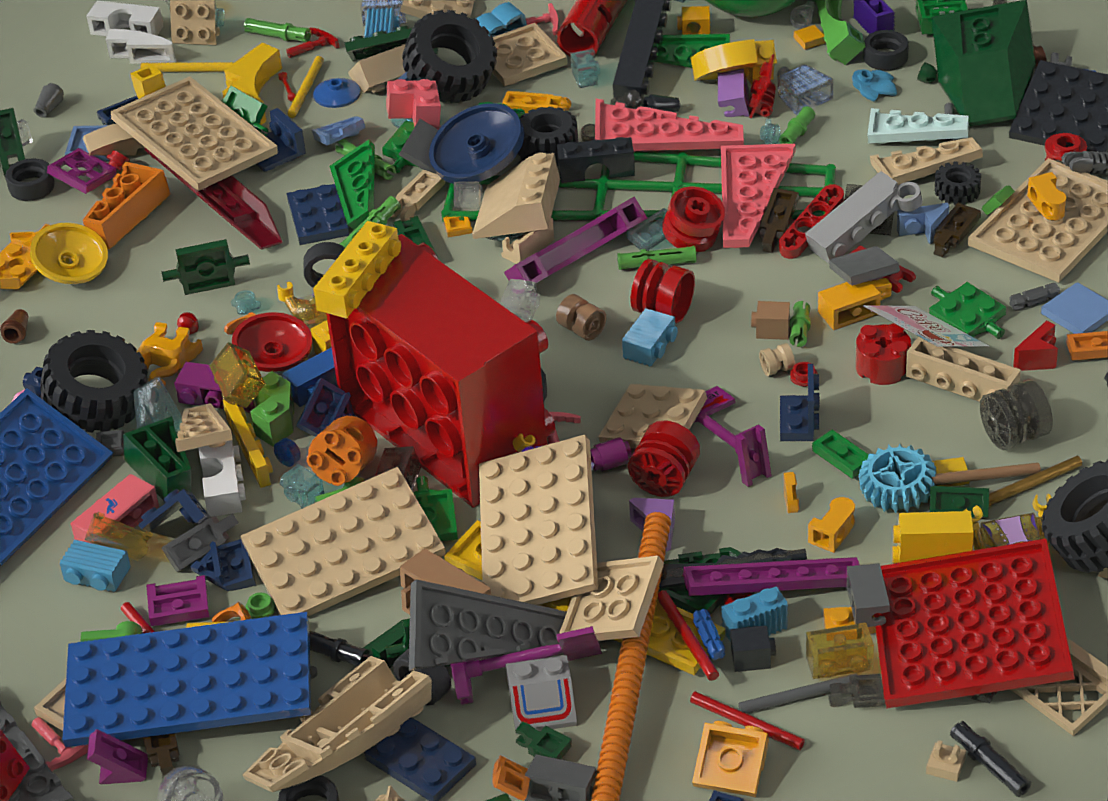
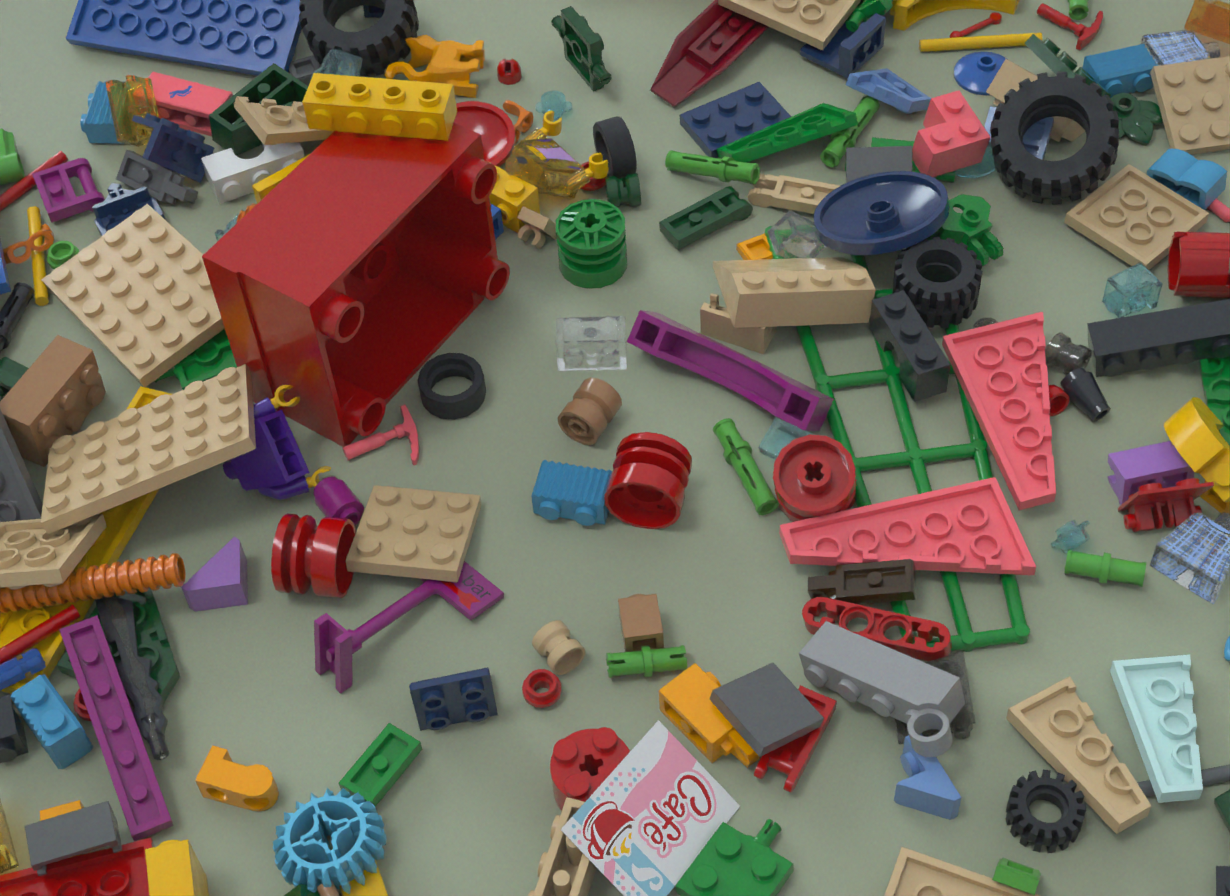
camera: 75 degrees right, 10 degrees up
(529, 101) = (1030, 260): light orange hinge -> none
(790, 492) = (293, 718): light orange tile -> none
(955, 228) = (929, 826): dark brown hinge -> none

